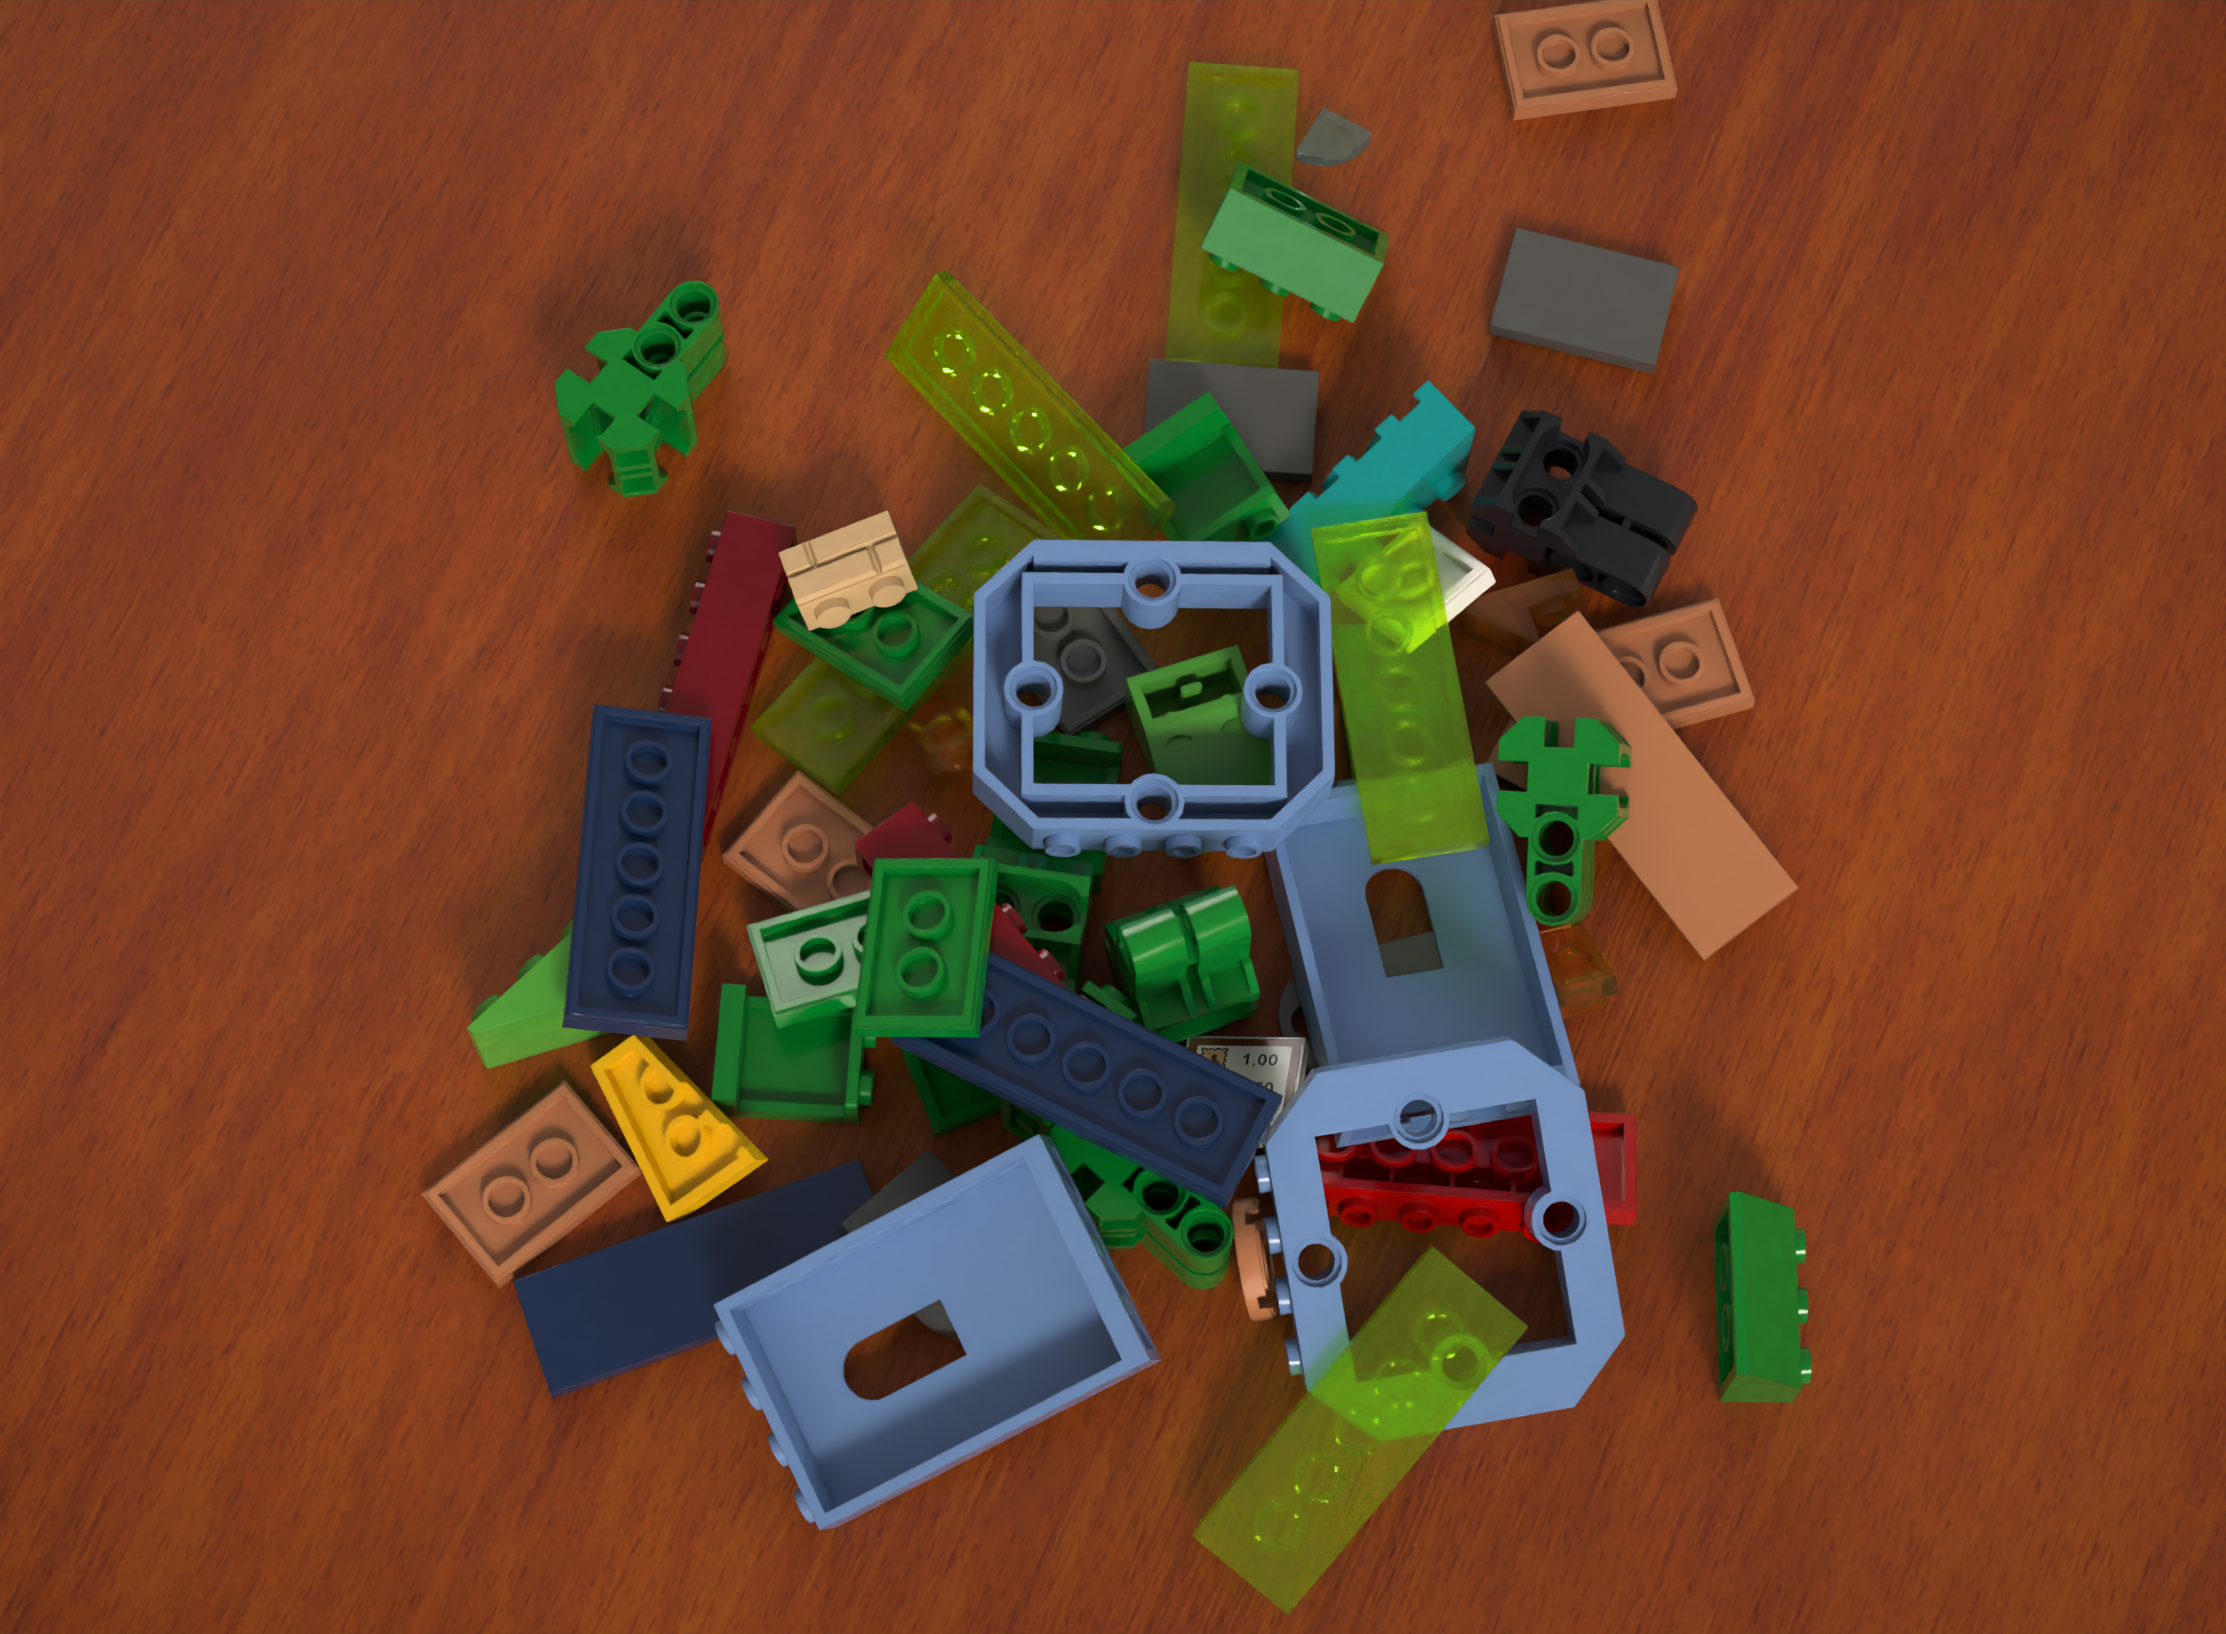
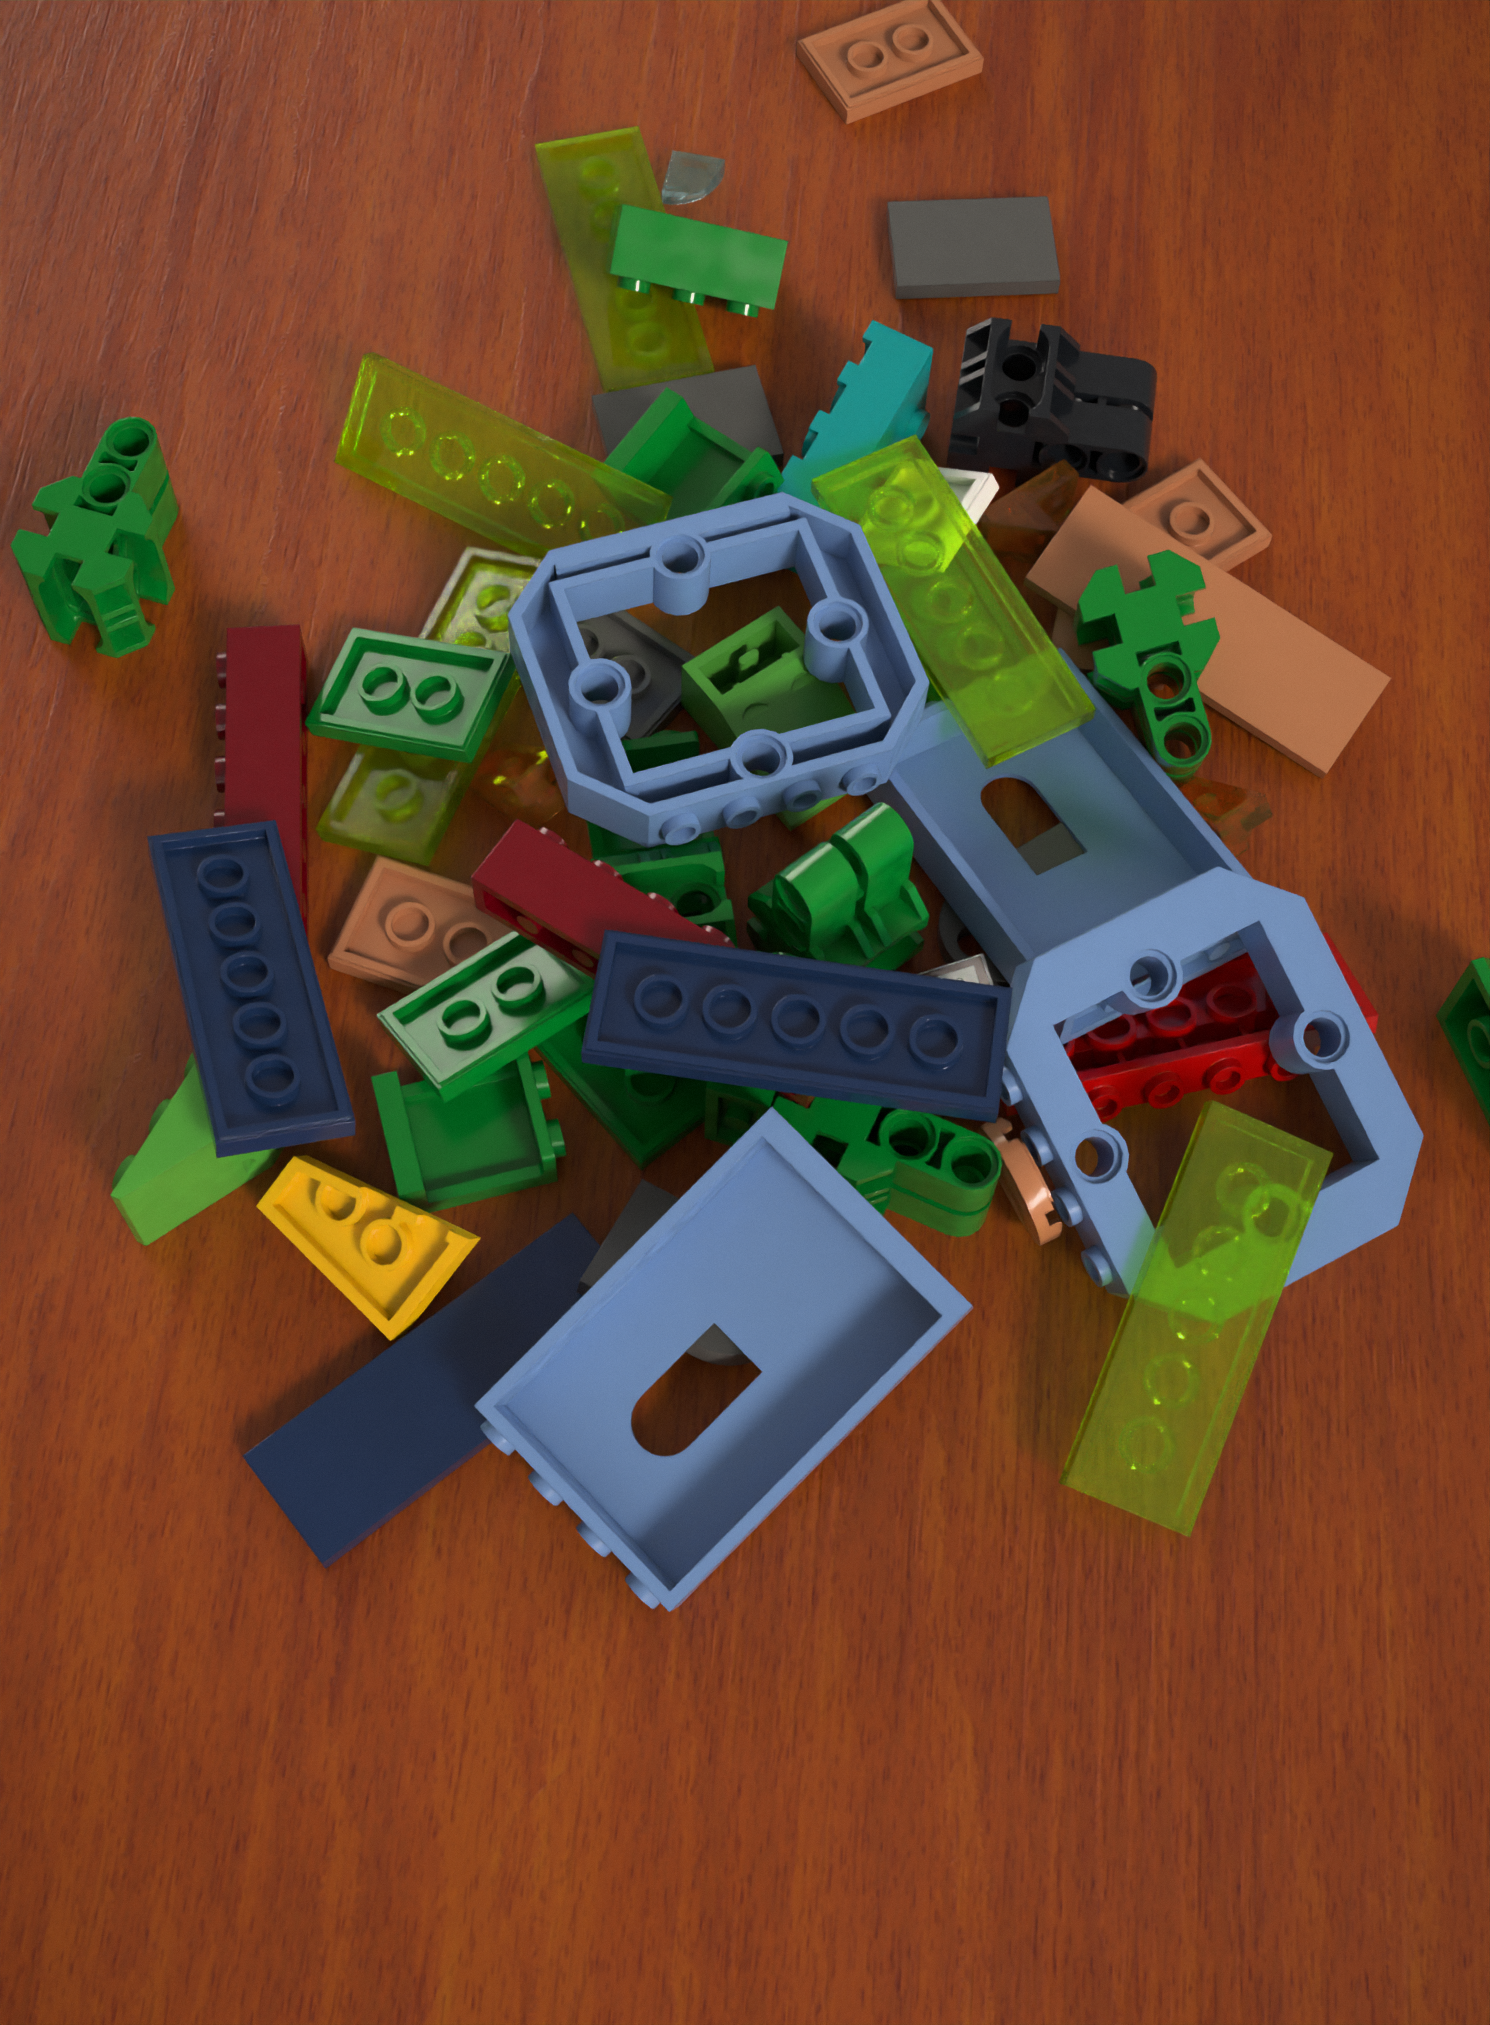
camera: 20 degrees left, 5 degrees down
(531, 1184) = (230, 1349): nougat tile -> none
(848, 572) = (368, 646): tan brick -> none
(926, 947) = (587, 952): green tile -> none

